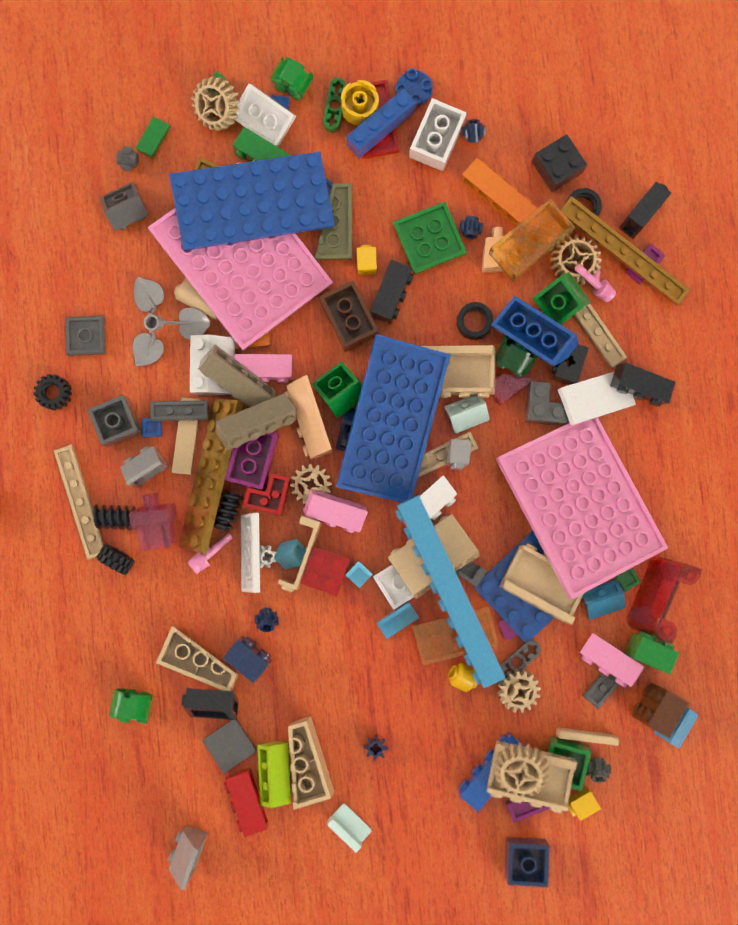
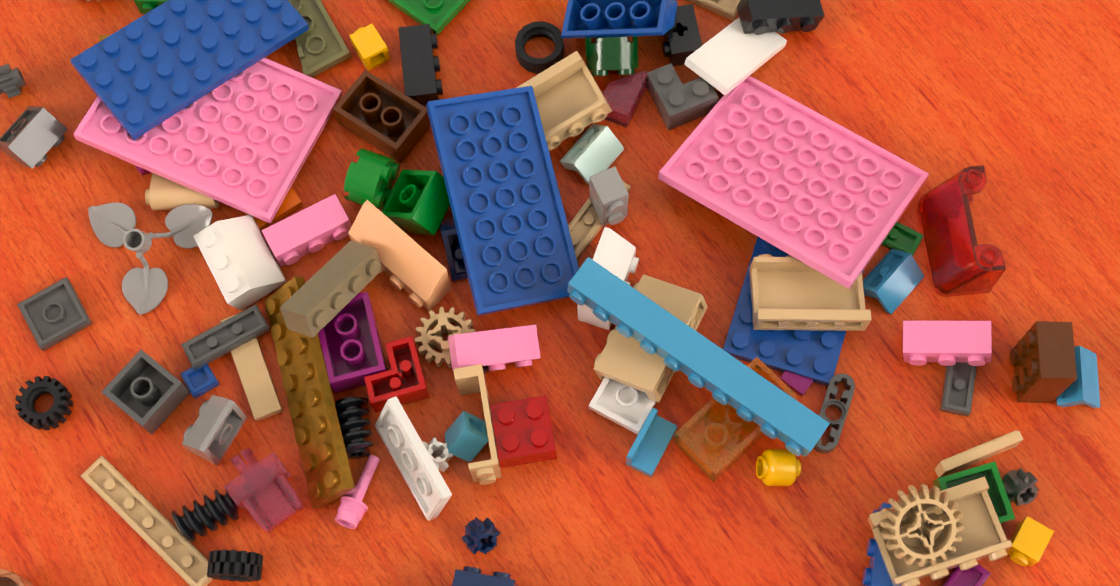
camera: 25 degrees left, 15 degrees down
(153, 137) = (29, 45): green tile -> none
(235, 377) = (274, 252): dark tan brick -> none
(318, 357) = (370, 178): none -> green brick
(359, 574) = (569, 412): medium azure panel -> none
(472, 573) = (715, 332): dark grey panel -> none
(526, 696) = (845, 444): tan gear -> none
(655, 654) = (995, 300): green brick -> none

